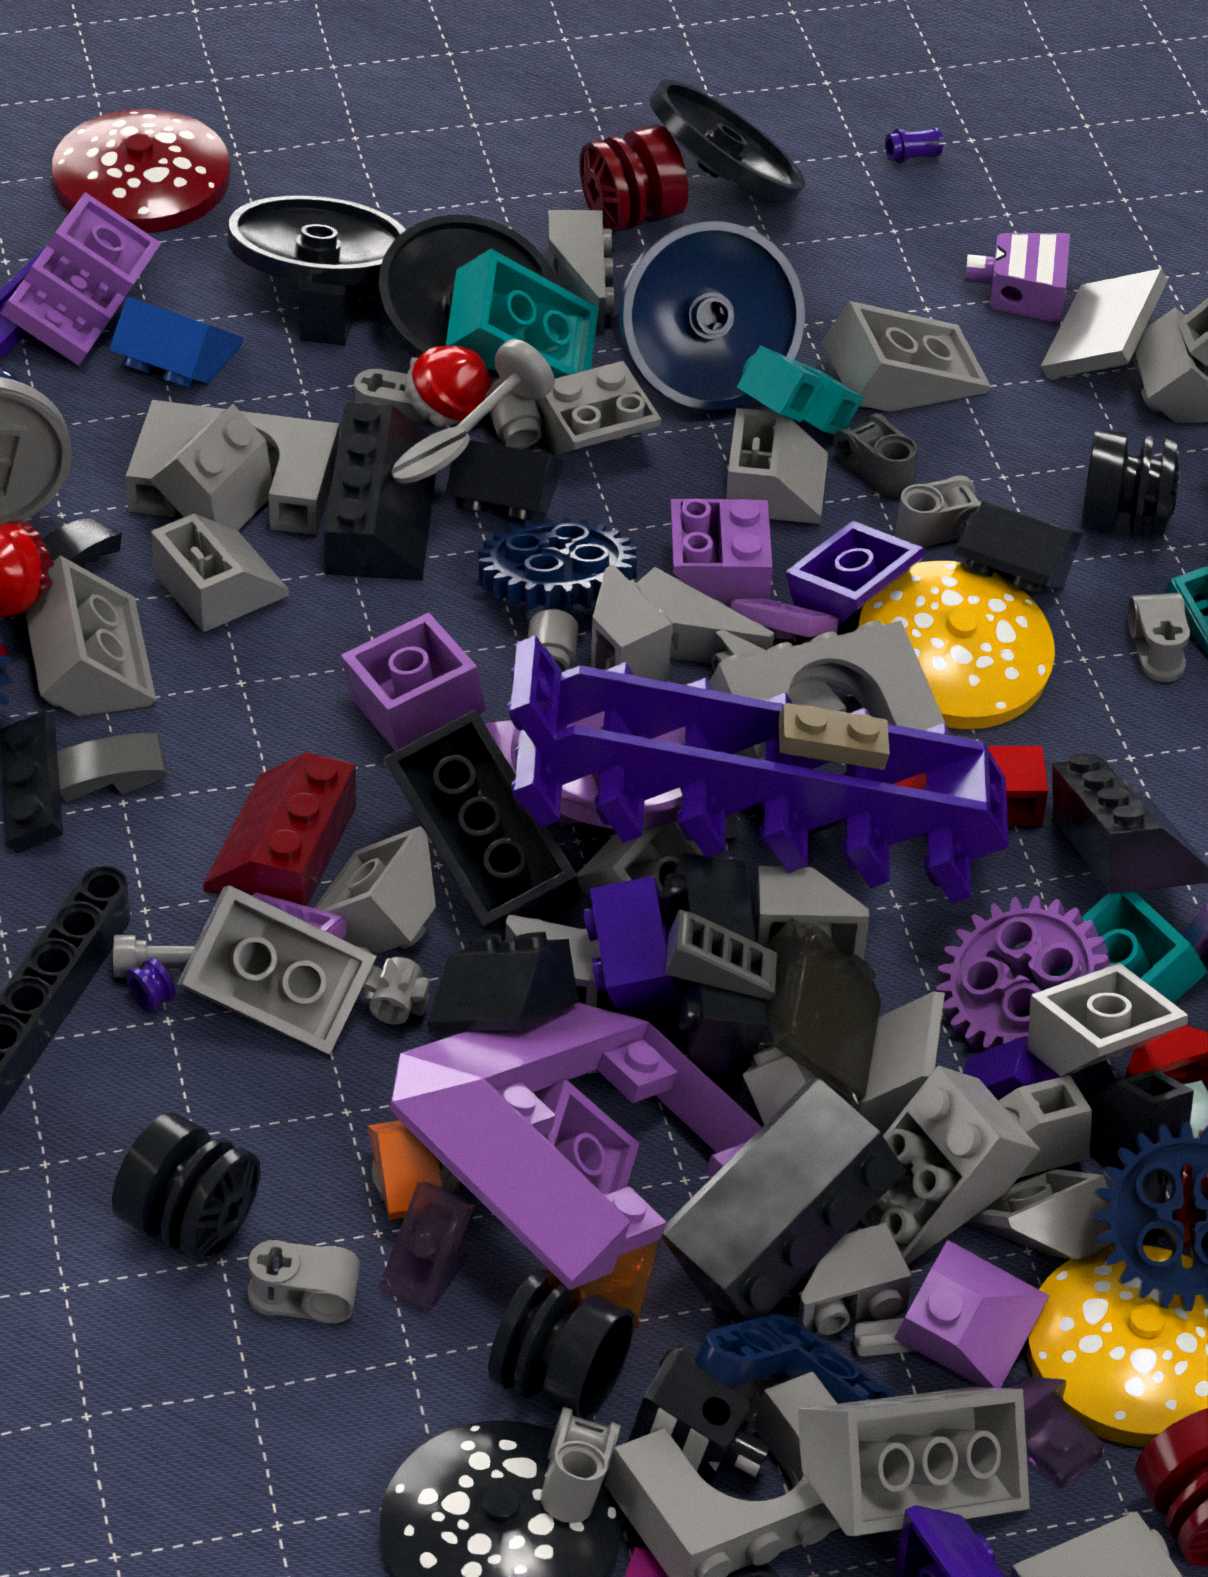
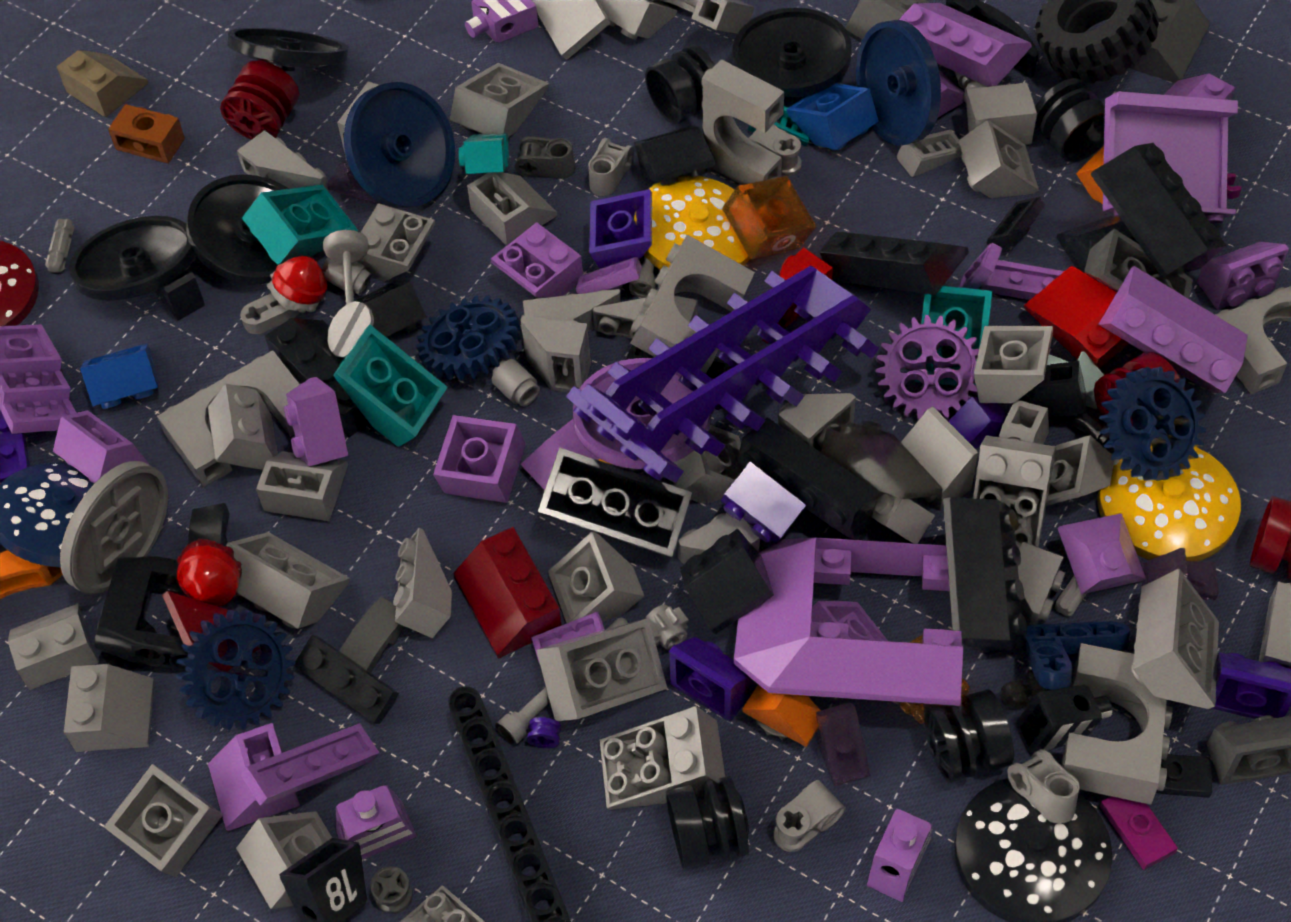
camera: 40 degrees left, 10 degrees up
(63, 371) = (92, 445): none -> medium lavender slope
(201, 757) = (423, 590): none -> light grey slope
(243, 1098) = (661, 757): none -> light grey slope
(274, 182) = (59, 245): none -> light grey axle
(280, 511) = (315, 422): none -> medium lavender slope
(345, 1391) = (902, 849): none -> medium lavender torso
(370, 1049) = (709, 677): none -> dark purple slope
(398, 533) = (388, 386): none -> teal slope
(488, 136) = (146, 133): none -> dark orange brick
(509, 52) = (99, 80): none -> dark tan slope
(704, 953) = (818, 492): dark grey slope -> none
(833, 736) = (761, 318): dark tan plate -> none
(1040, 685) = (768, 217): none -> clear orange brick
(1112, 532) = (737, 94): none -> light grey arch

